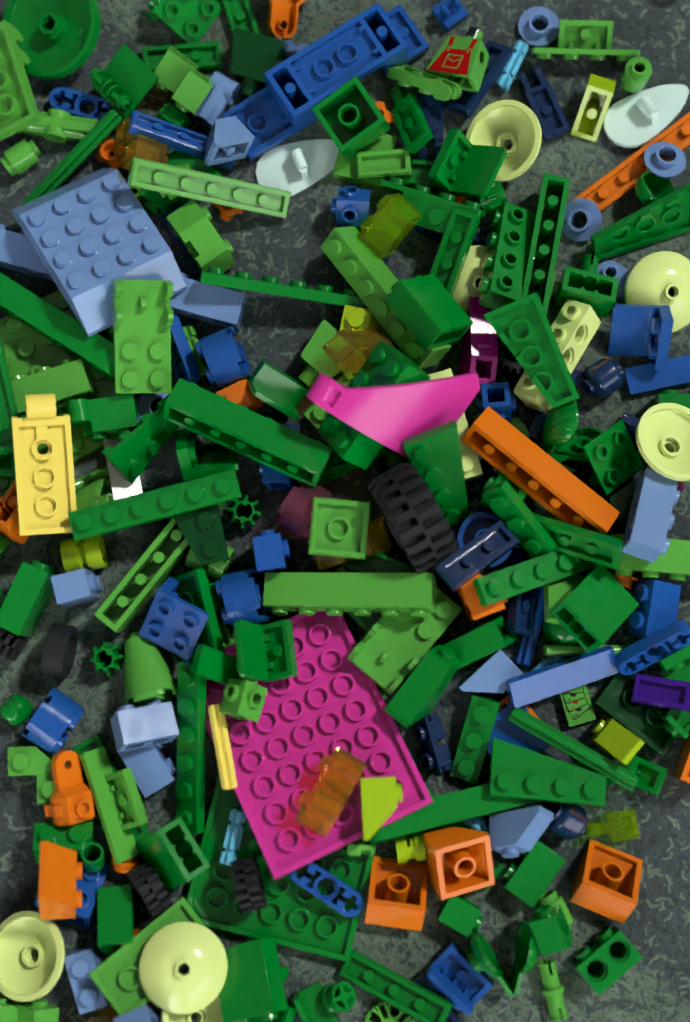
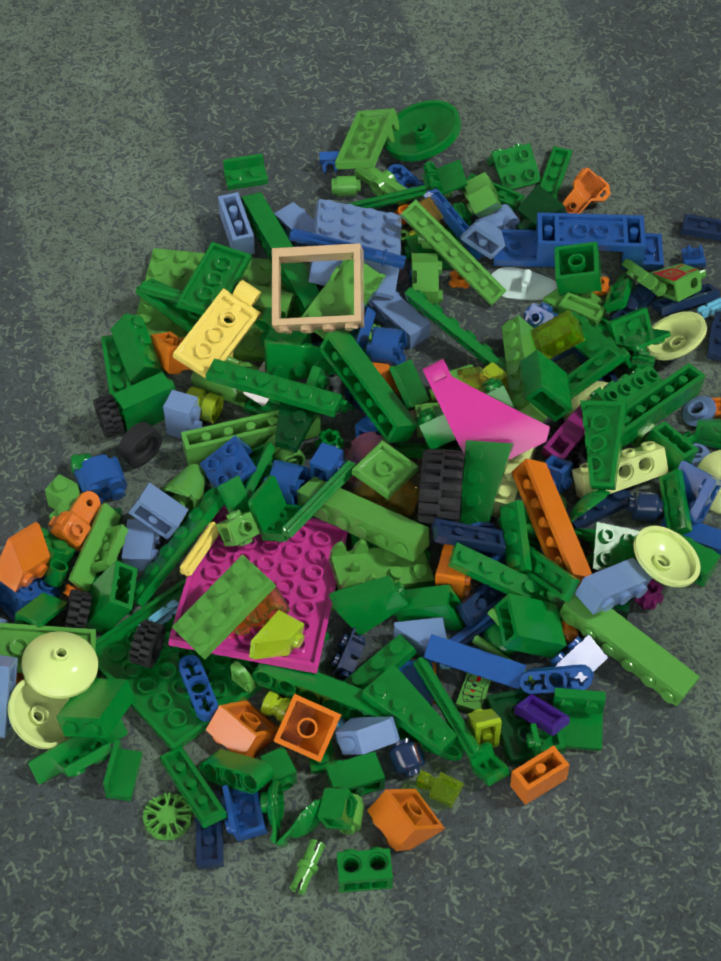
camera: 30 degrees right, 30 degrees down
(89, 315) = (315, 254): none -> tan window
(105, 666) = (166, 469): green gear -> none
(106, 275) = (369, 253): none -> blue axle
(297, 607) = (295, 523): none -> green axle
(311, 822) = (223, 606): none -> bright green plate
(342, 1002) = (152, 767): green wheel -> none
(427, 950) = (236, 771): none -> green beam
(633, 359) = (675, 502): none -> green tile

